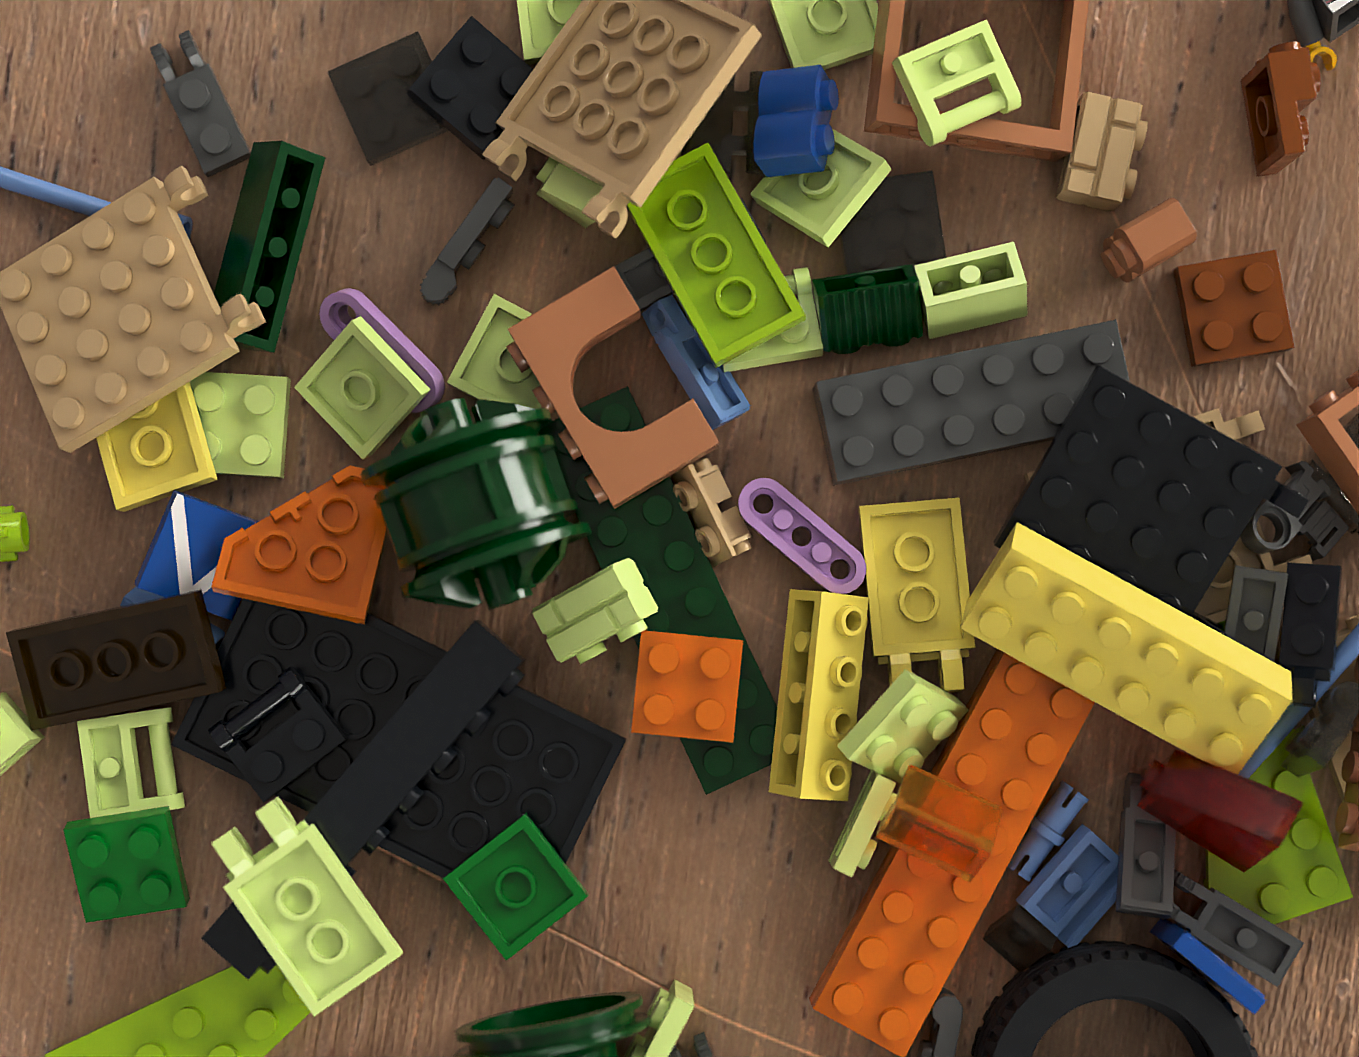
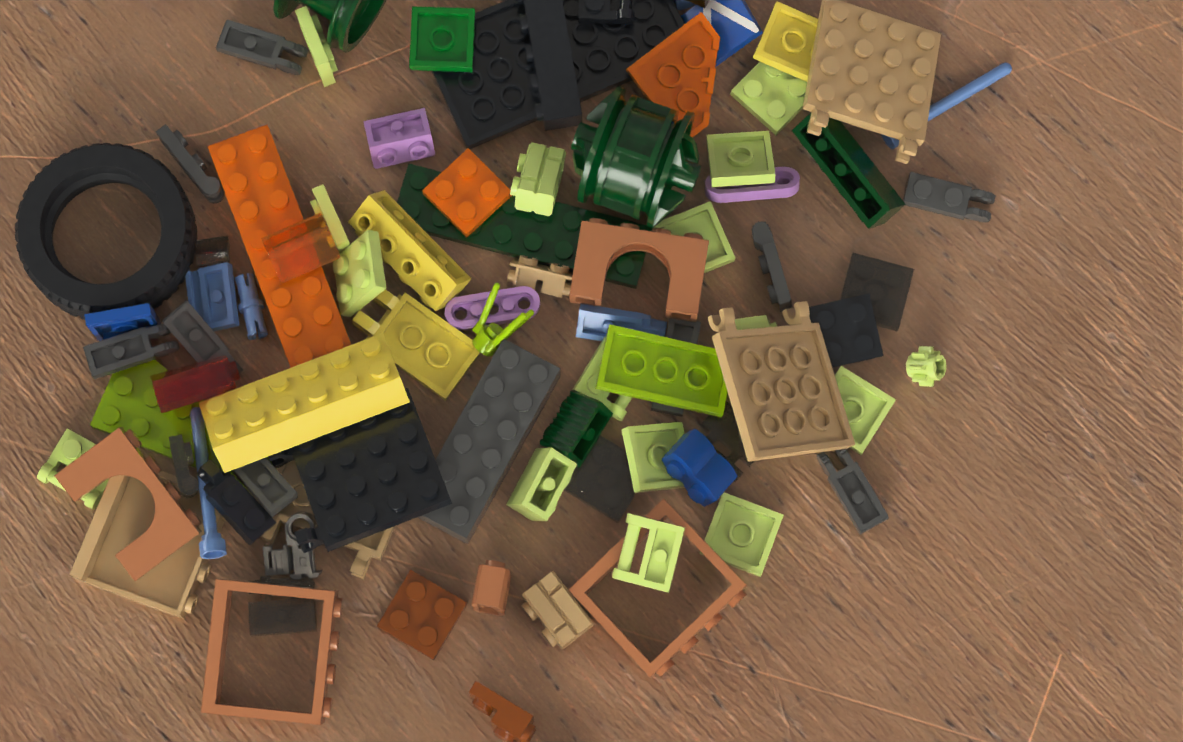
camera: 130 degrees right, 10 degrees down
(683, 835) = (399, 138): none -> lavender bracket
(842, 504) = (491, 335): none -> lime plant

